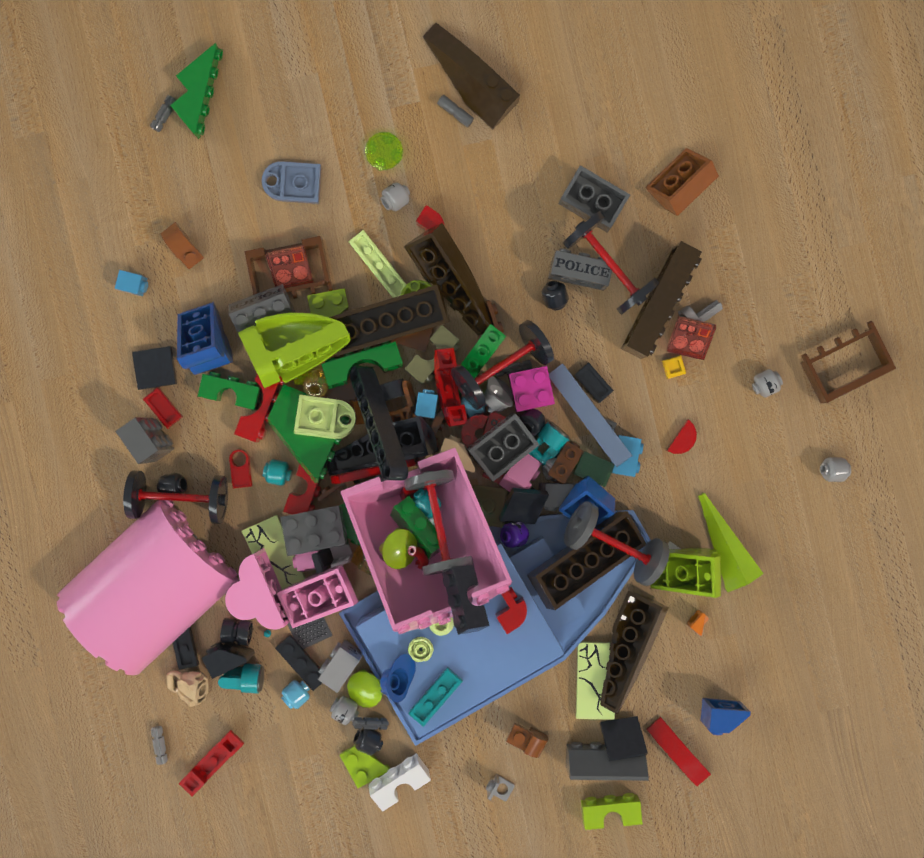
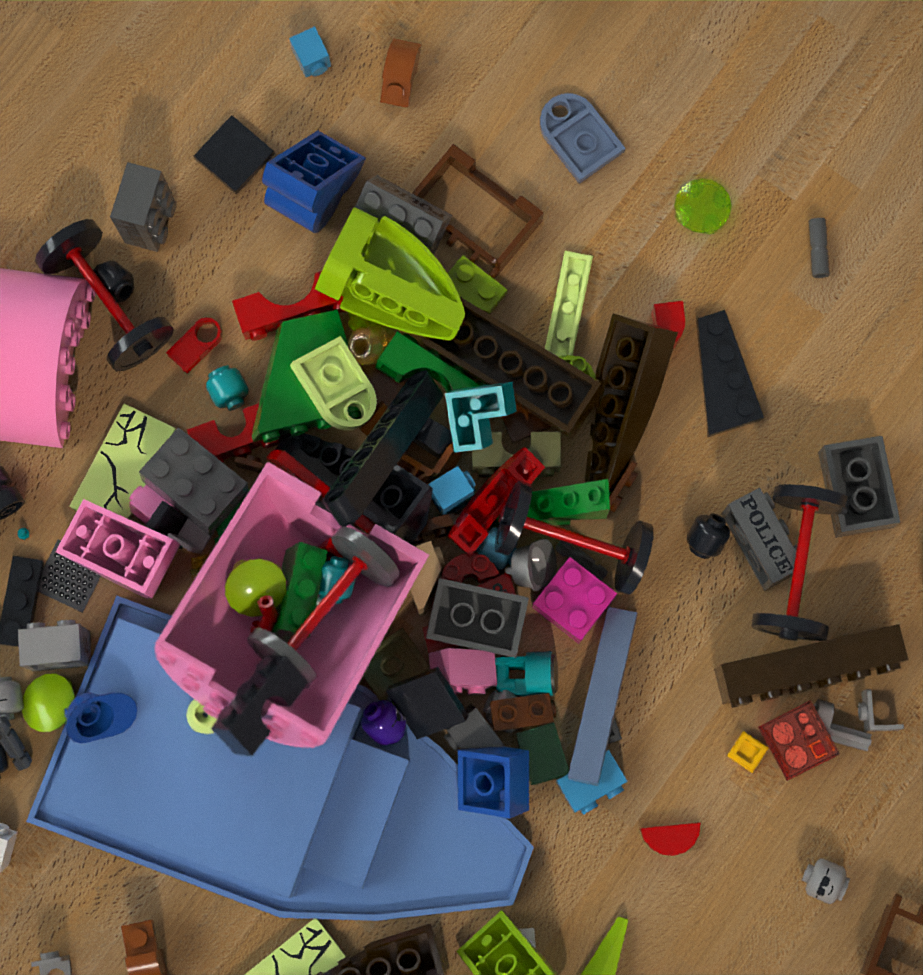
camera: 50 degrees right, 10 degrees down
(163, 407) = (195, 200): red tile -> none
(213, 386) = (268, 236): green arch -> none
(257, 593) = (65, 475): bright pink brick -> none
(290, 267) = (479, 208): clear red tile -> none
(395, 196) = (661, 260): light grey head -> none
(396, 362) = (470, 413): none -> teal brick
(416, 654) = (144, 713): yellowish green plate -> none
(435, 696) = (110, 782): teal tile -> none
(474, 79) = (872, 237): dark brown wedge -> none
(482, 217) = (726, 383): none -> black wing
(514, 614) = (293, 791): red brick -> none
(533, 420) = (538, 633): black head -> none
(575, 570) = (425, 832): dark brown brick -> none
(593, 382) = (645, 670): black tile -> none
(650, 560) = (488, 913): dark grey piece -> none
(706, 294) = (865, 714): none -> light grey bracket

